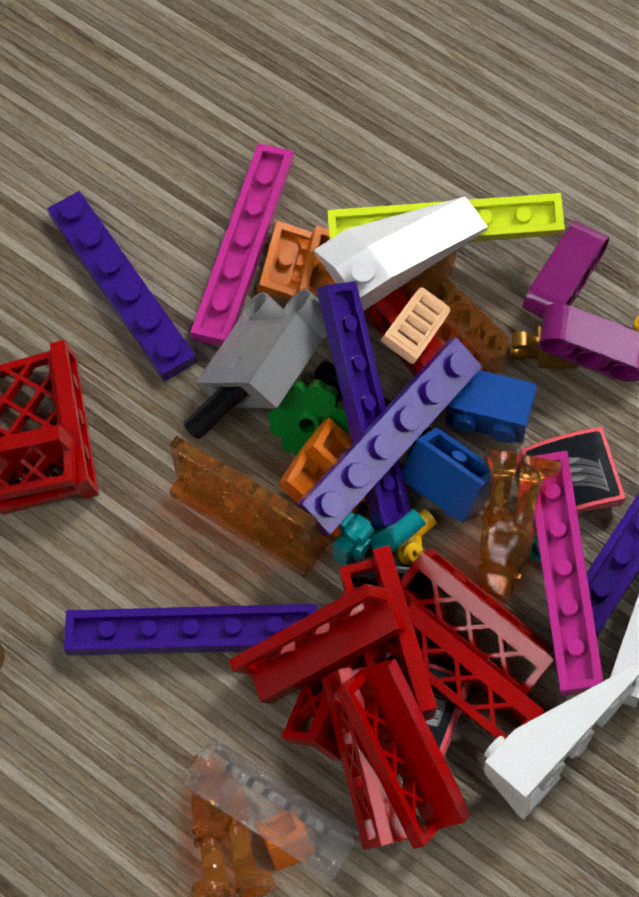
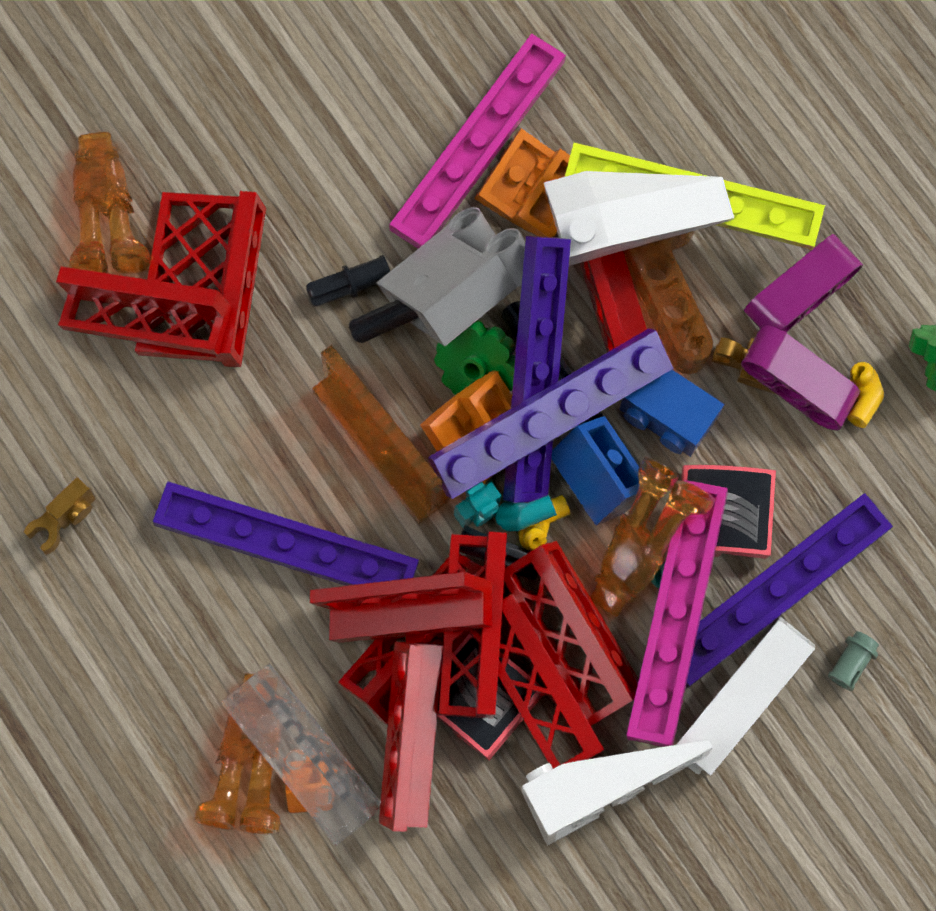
camera: 10 degrees right, 10 degrees up
(122, 286) = (337, 145): dark purple plate -> none
(169, 392) = (347, 281): none -> black axle
(407, 747) = (453, 740): red fence -> none
(418, 323) = (621, 301): light nougat slope -> none

